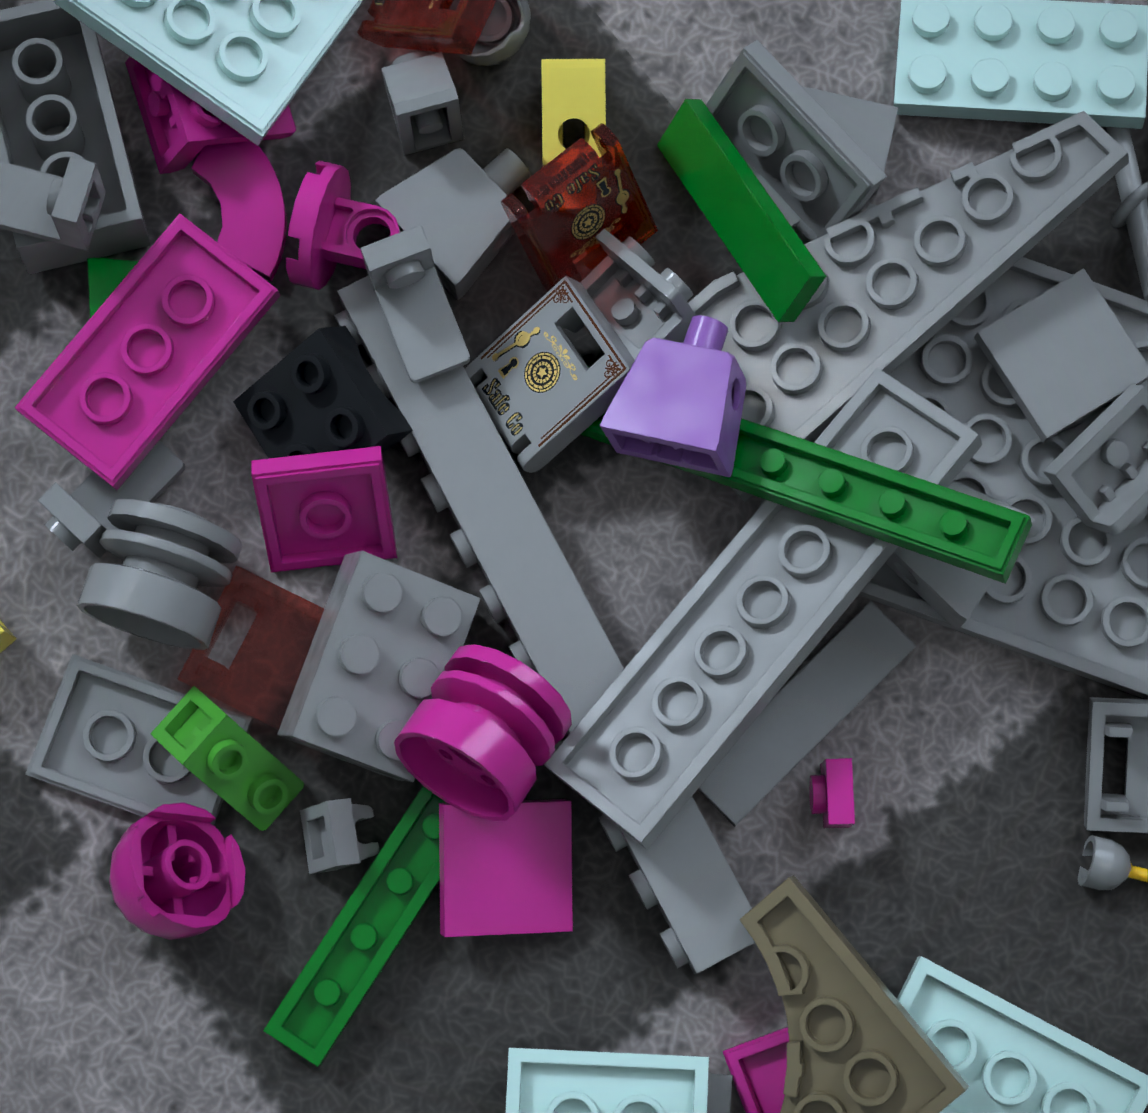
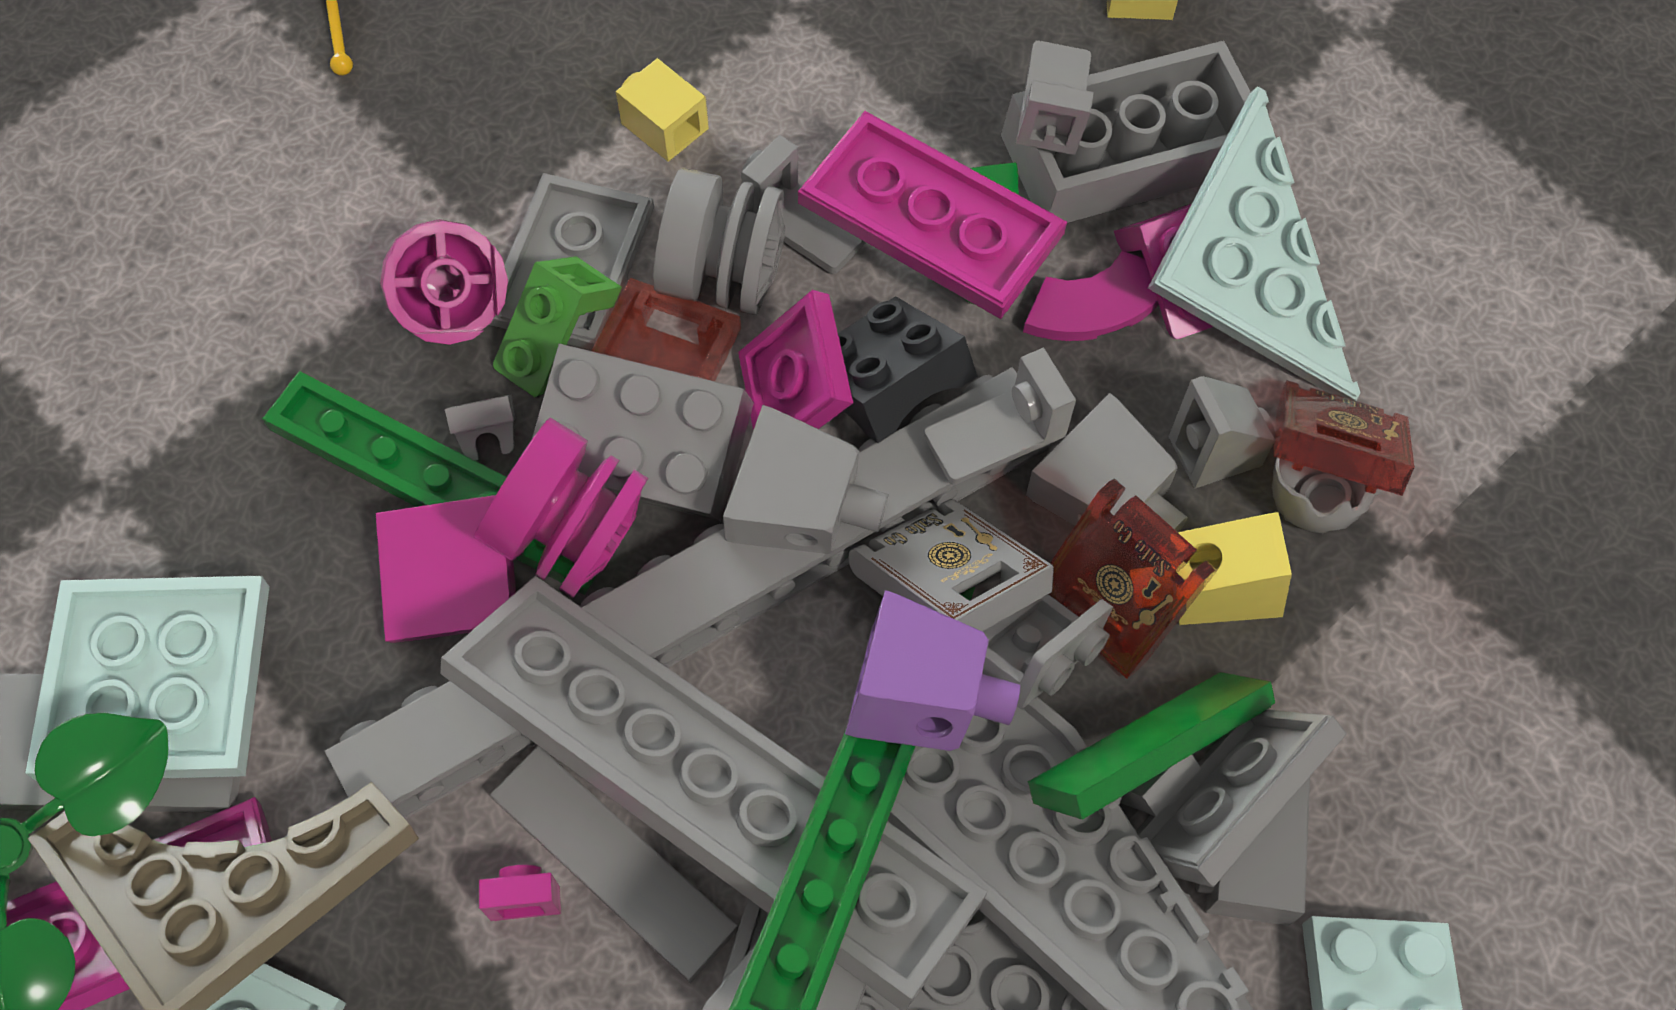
camera: 85 degrees right, 15 degrees down
(329, 225) = (1084, 345): dark pink tile -> none
(469, 505) = (798, 488): none -> light grey torso

